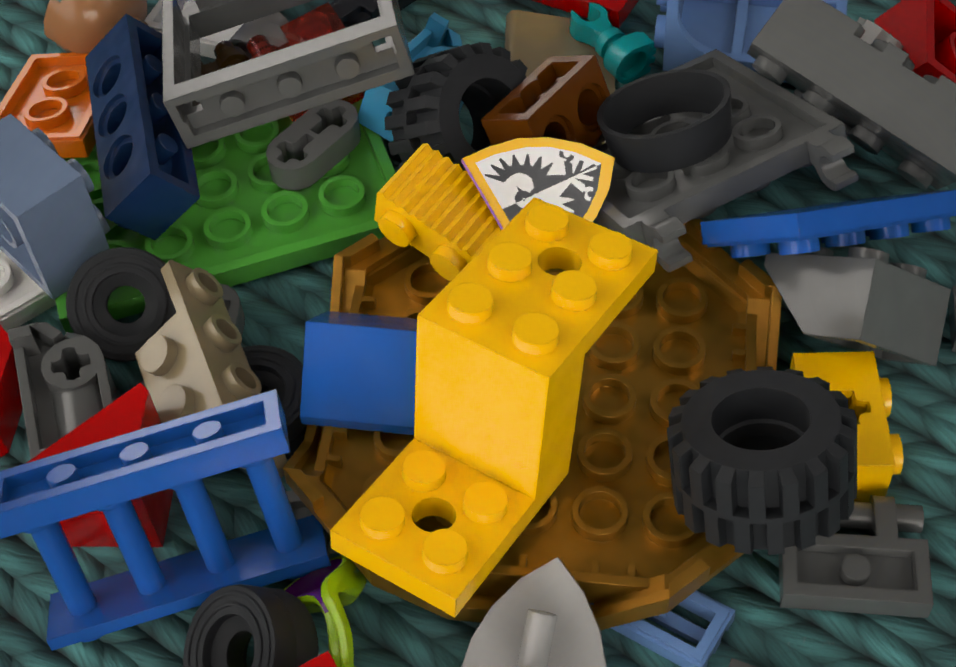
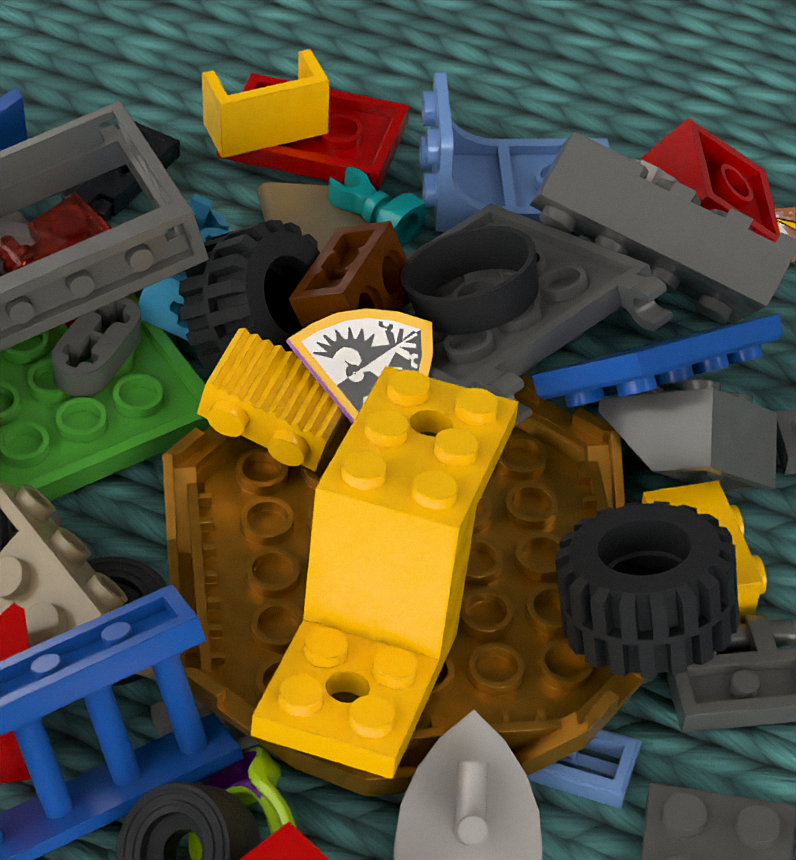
camera: 20 degrees left, 5 degrees down
(359, 372) = (242, 563): blue slope -> none

